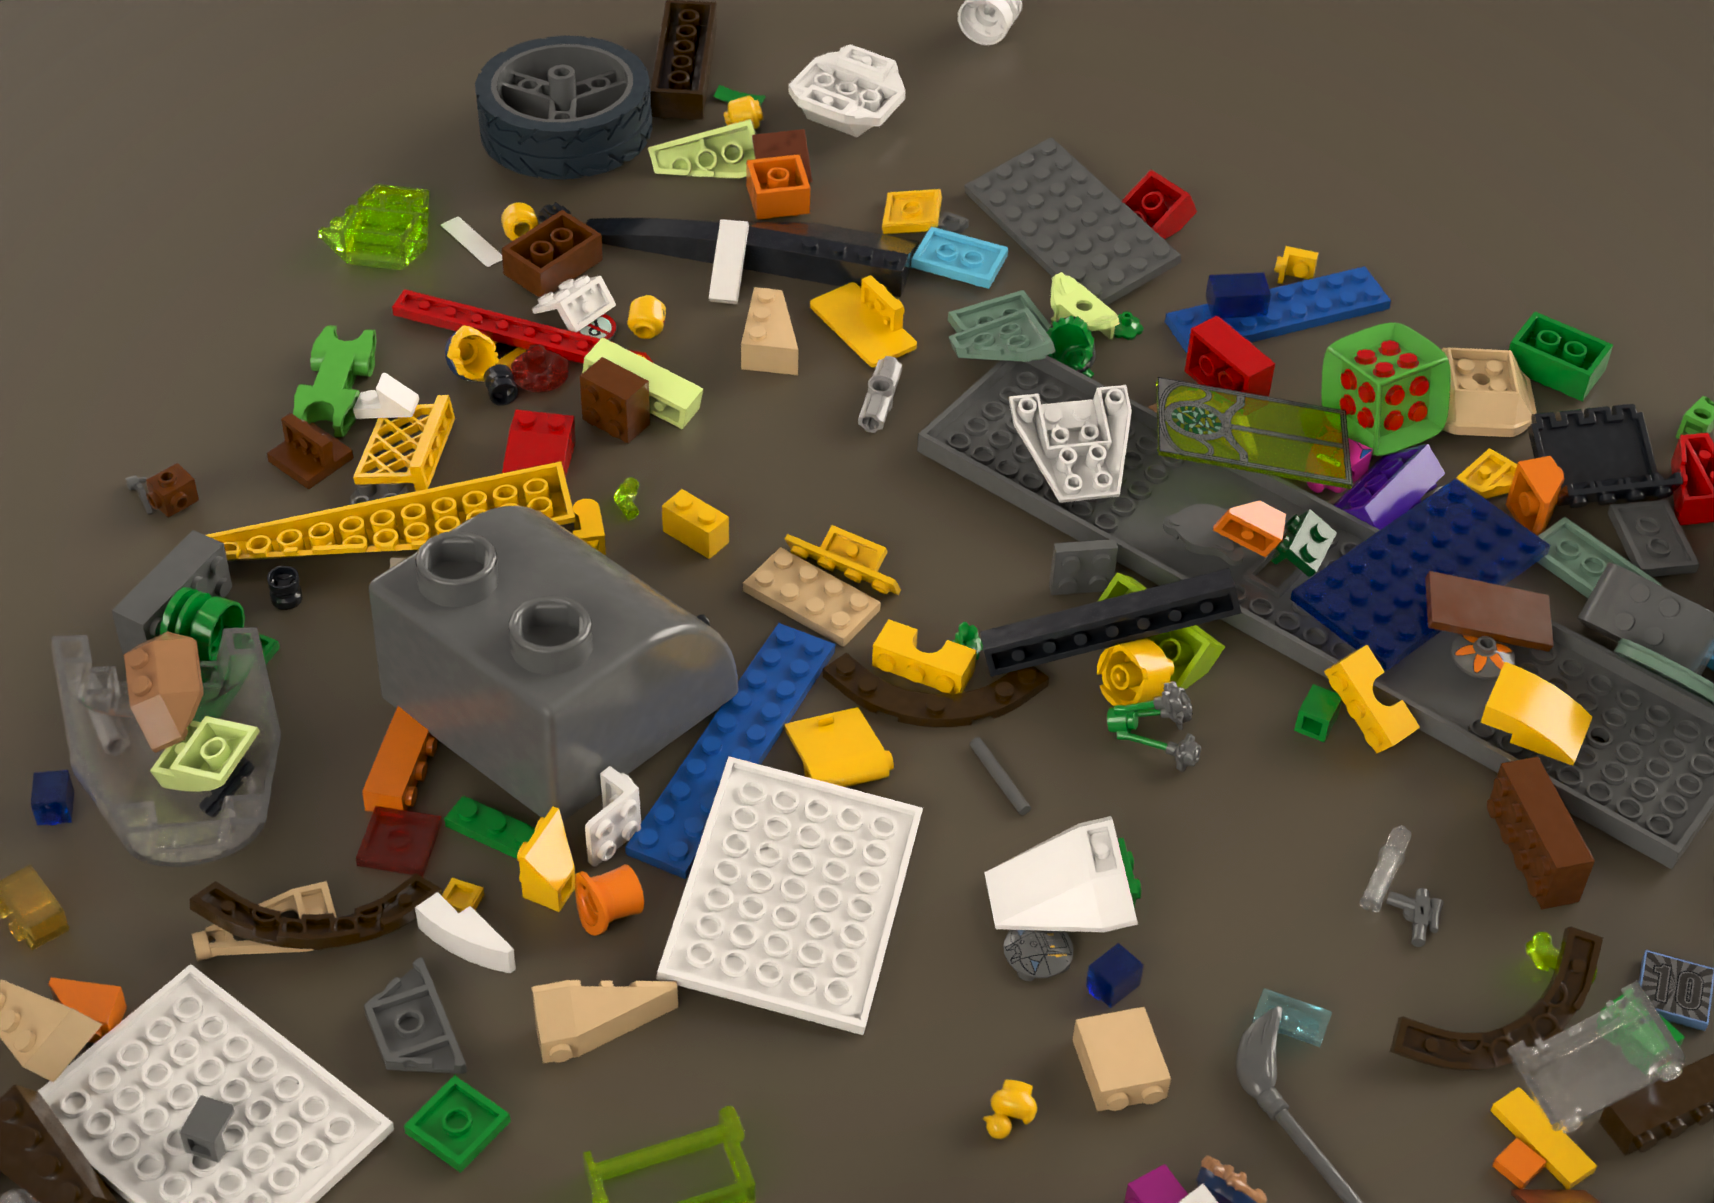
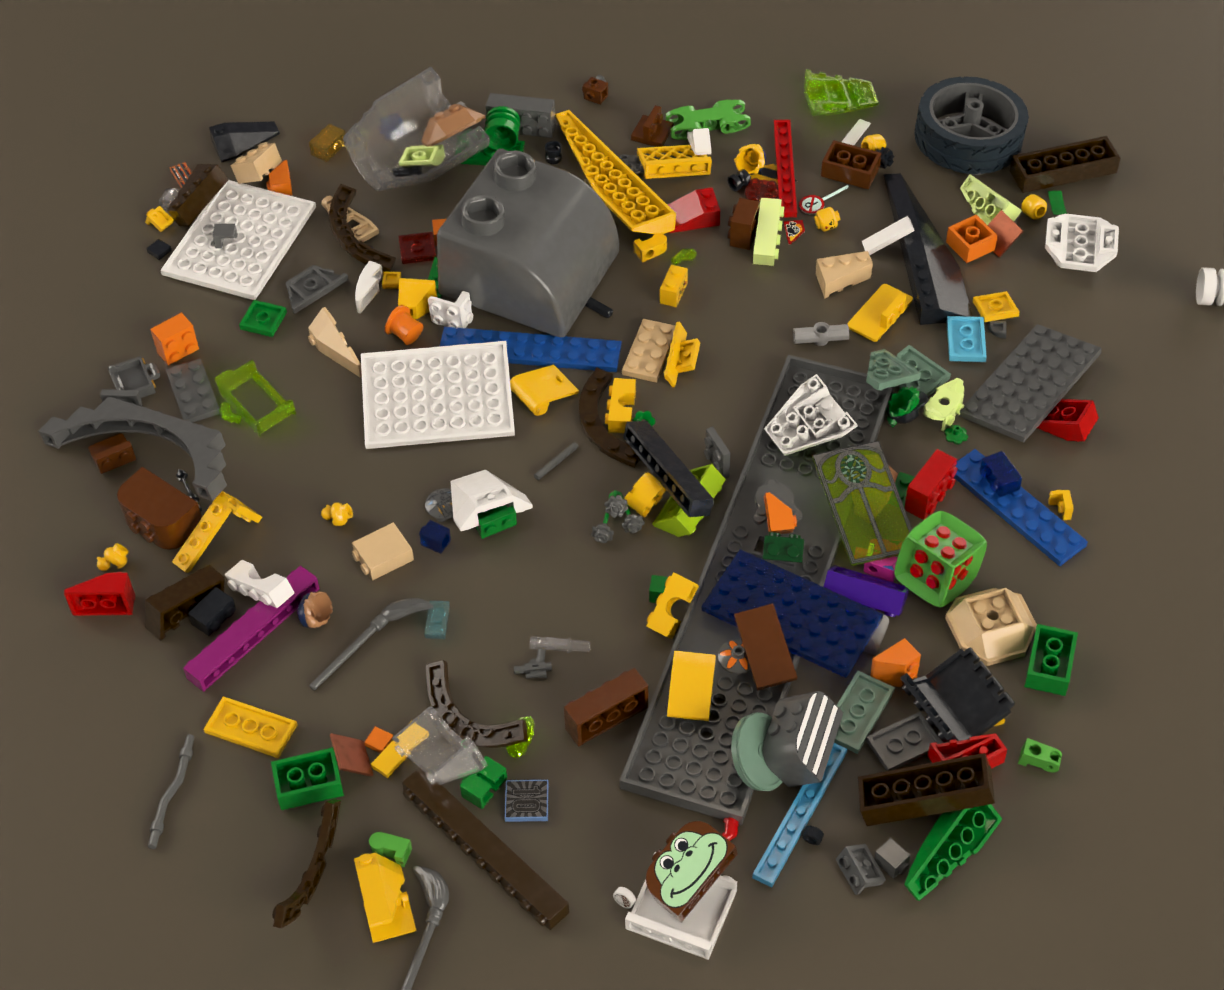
camera: 75 degrees right, 5 degrees up
(578, 301) = (819, 188): white bracket -> none
(1489, 474) = (921, 641): yellow wing -> none

